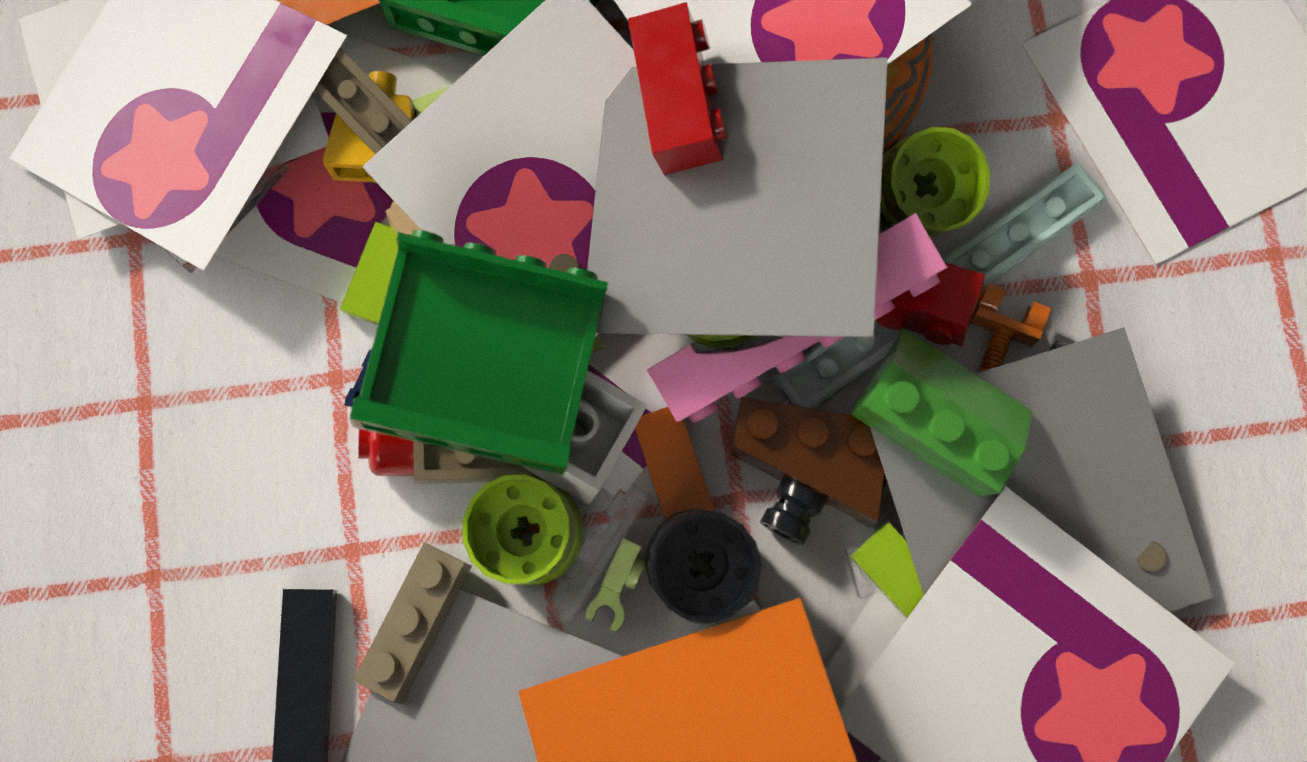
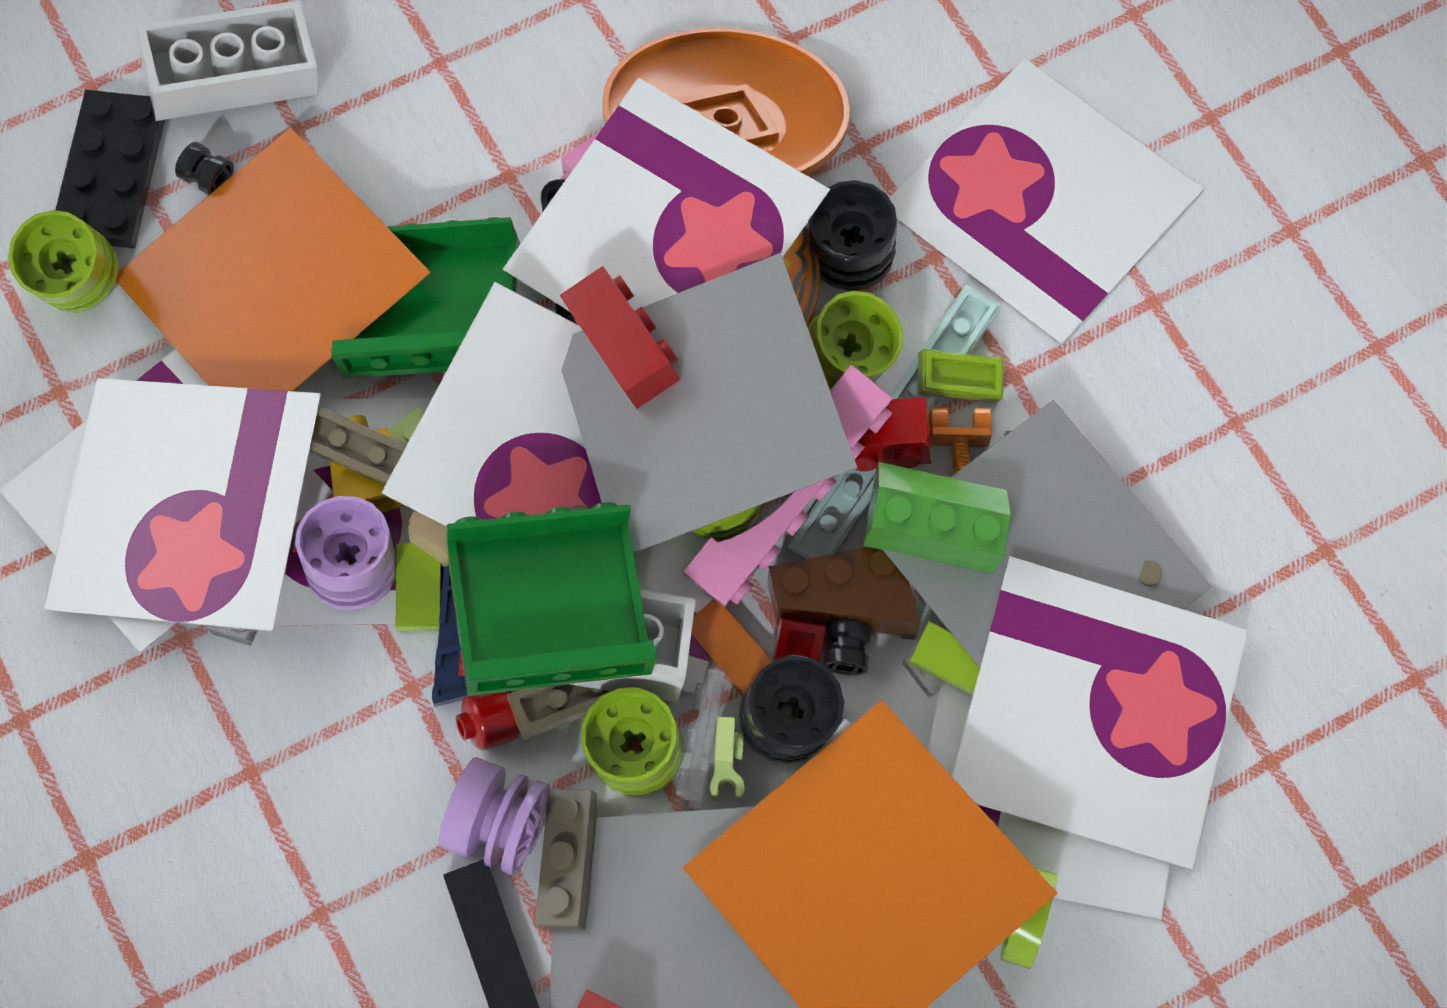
camera: 25 degrees left, 10 degrees down
(300, 194) = (340, 532): none -> lavender wheel
(342, 546) = (489, 814): none -> lavender wheel
(743, 487) = (799, 638): none -> red plate
(979, 64) = (854, 235): none -> black wheel
(1032, 260) = (960, 375): none -> lime tile

